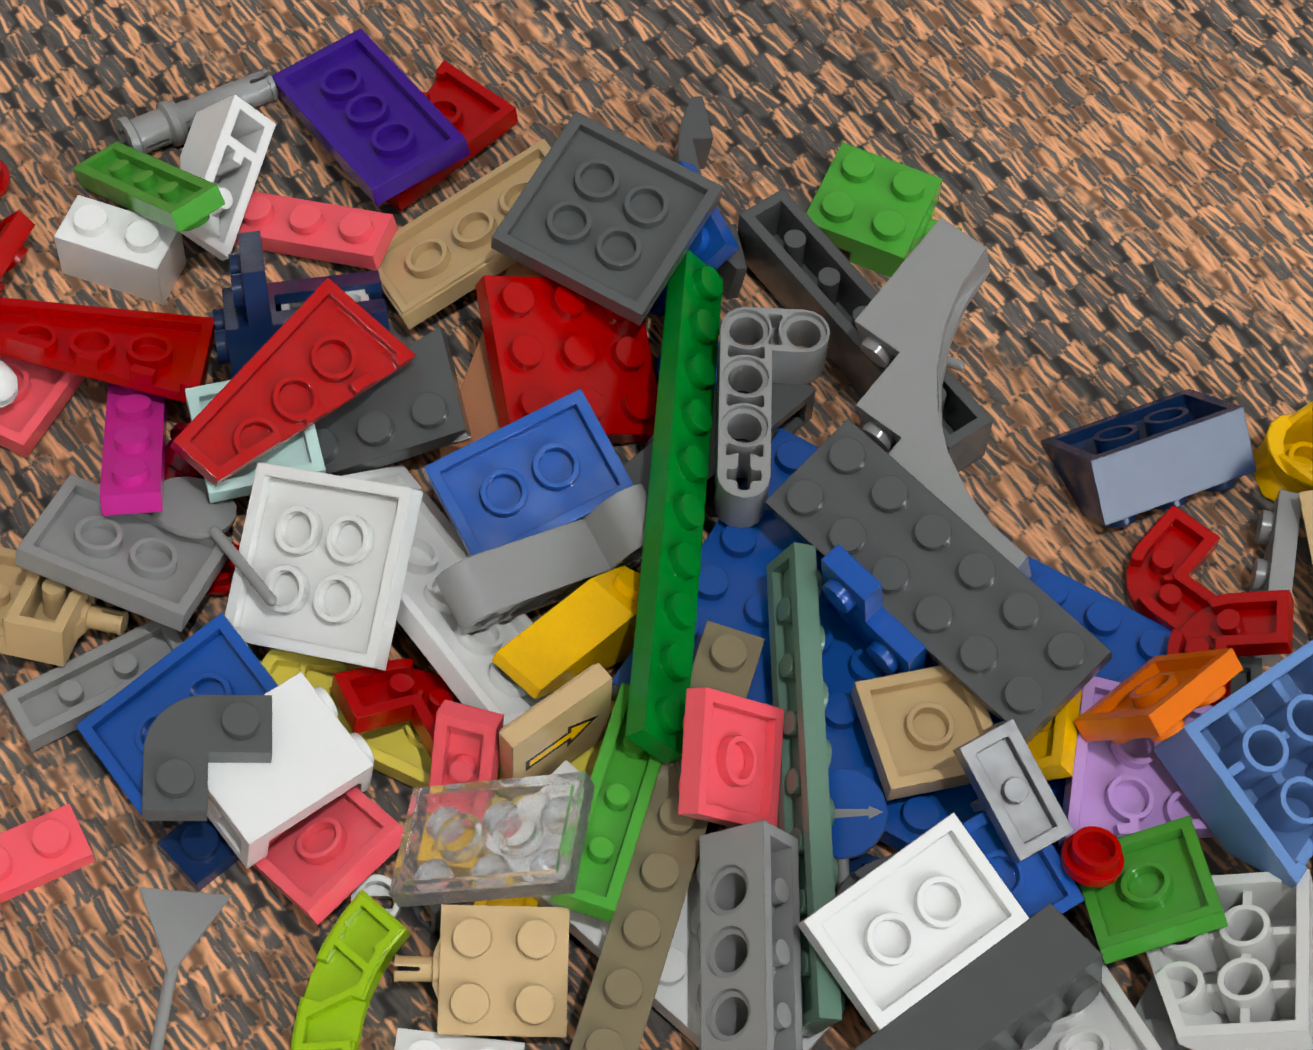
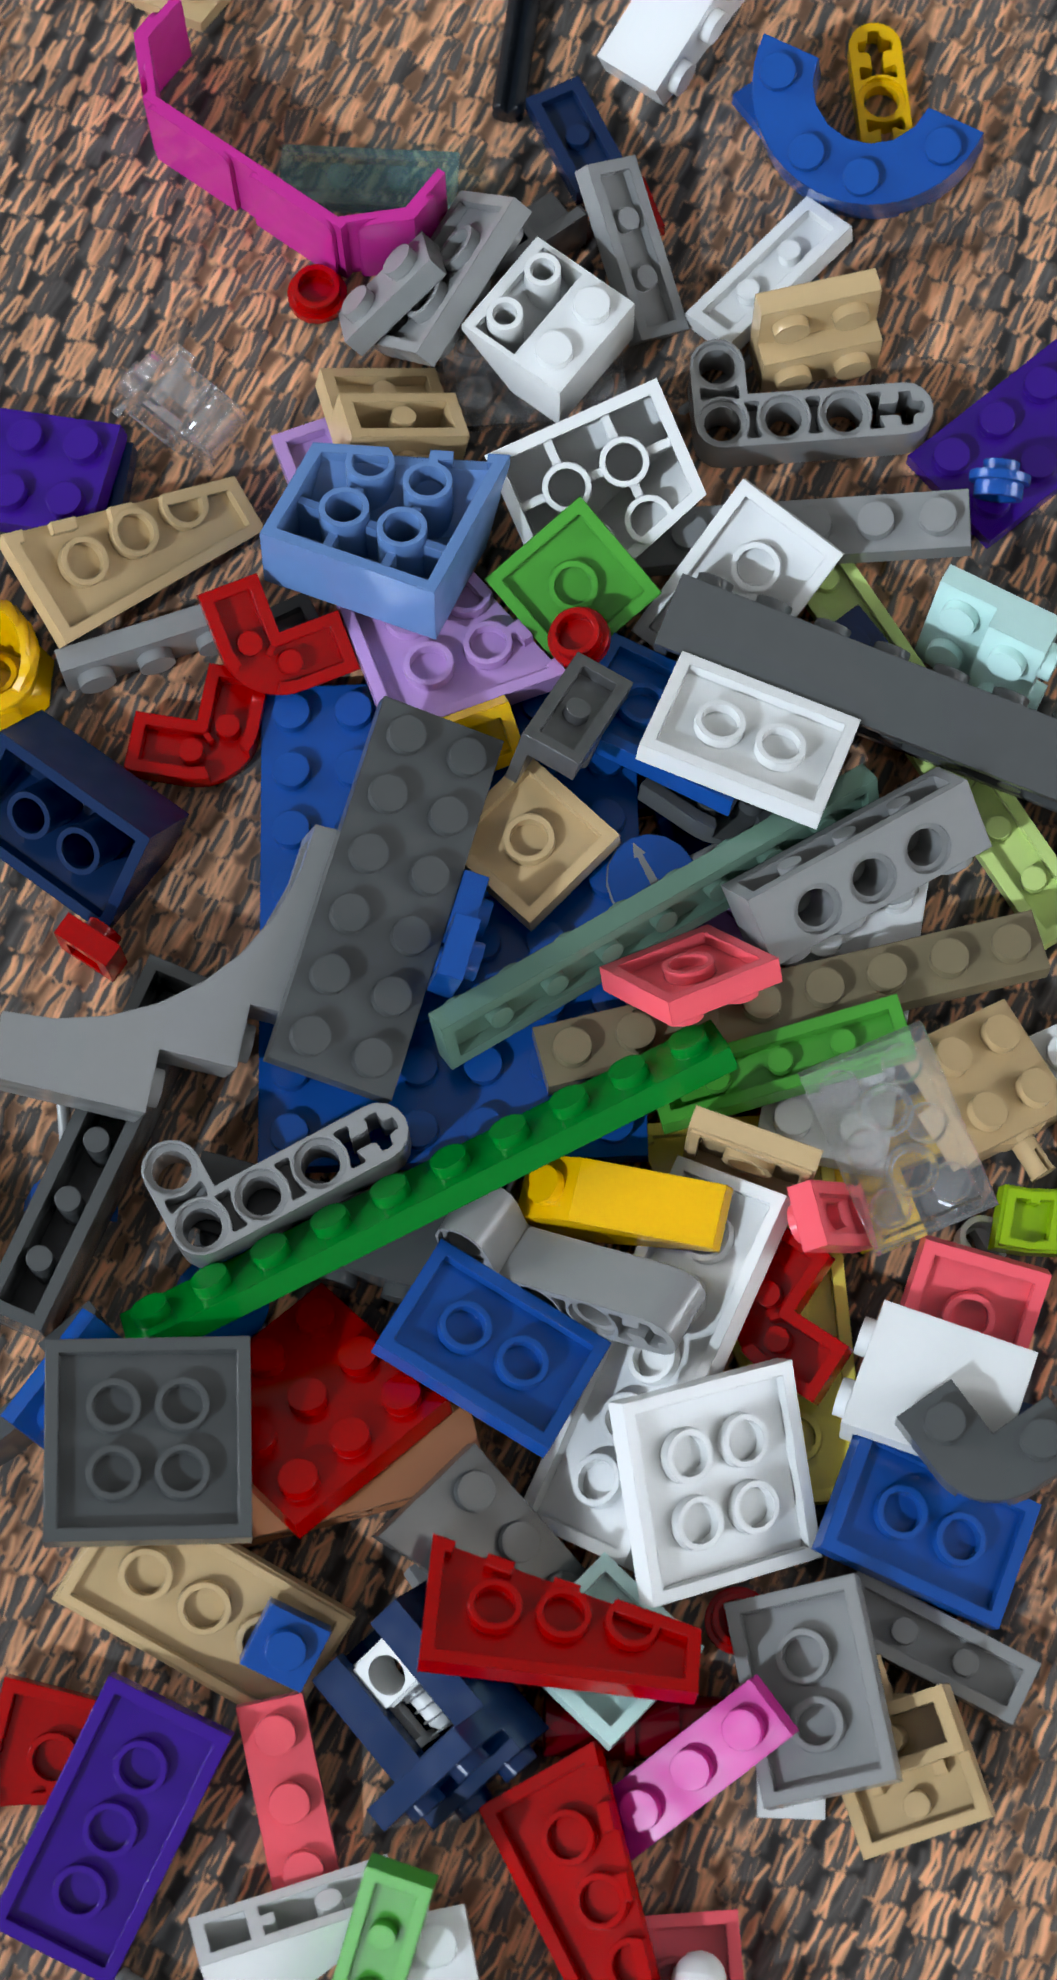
camera: 115 degrees left, 15 degrees up
(193, 516) = (730, 1648): light grey piece -> none
(413, 261) = (285, 1644): none -> blue plate
(1032, 414) = (92, 944): none -> red plate
(1159, 696) = (401, 639): orange plate -> none

